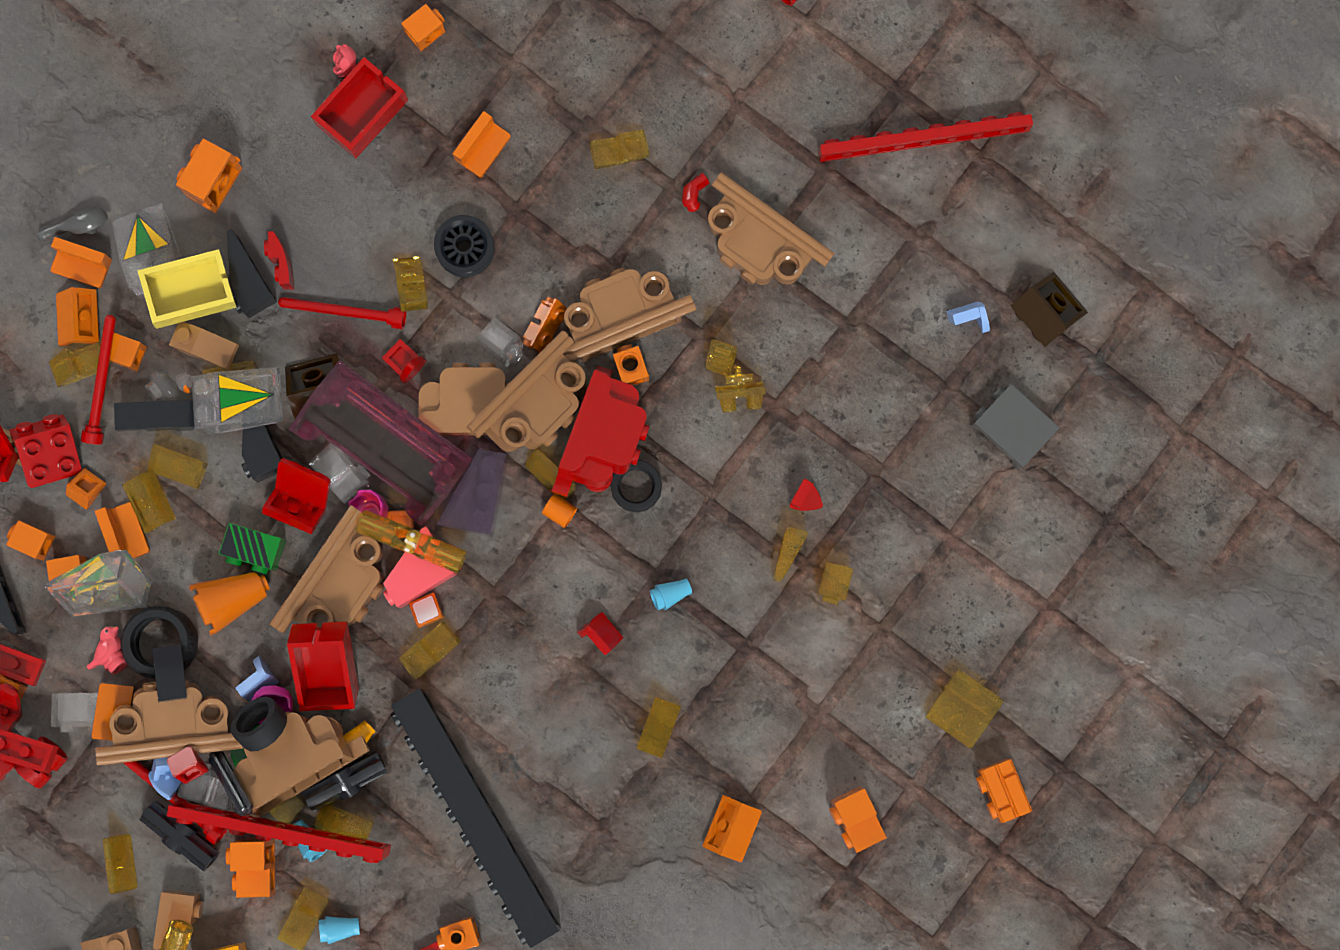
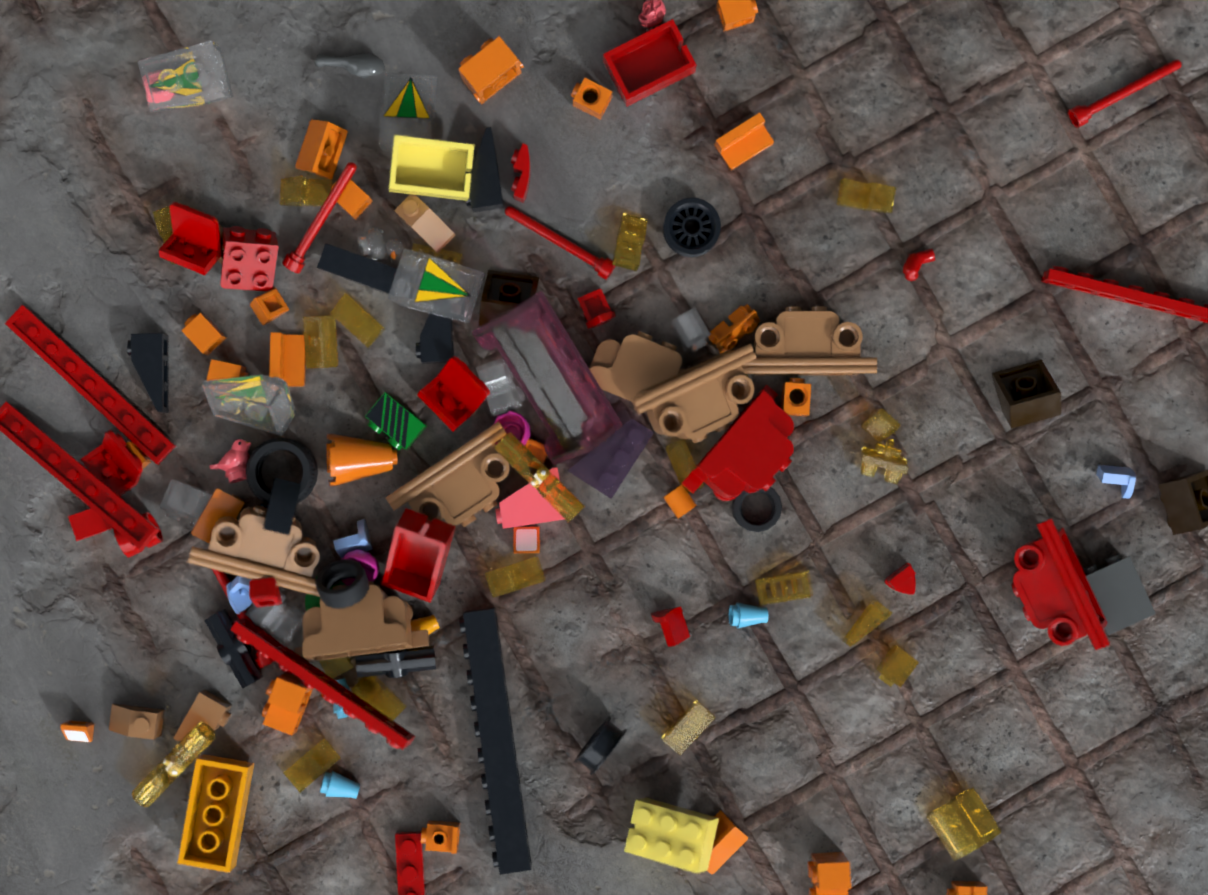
camera: 20 degrees right, 5 degrees up
(80, 263) = (342, 101): orange panel -> none
(120, 863) = (172, 650): clear yellow slope -> none
(231, 783) = (297, 625): black axle -> none
(327, 171) = (596, 108): none -> orange brick
(577, 778) = (600, 745): none -> black wheel
(683, 837) = (671, 835): none -> light yellow piece
(714, 538) = (806, 582): none -> clear yellow slope
(759, 238) = (960, 331): medium nougat brick -> none
(851, 272) = (1027, 393): none -> dark brown slope
(954, 442) = (1057, 589): none -> red brick

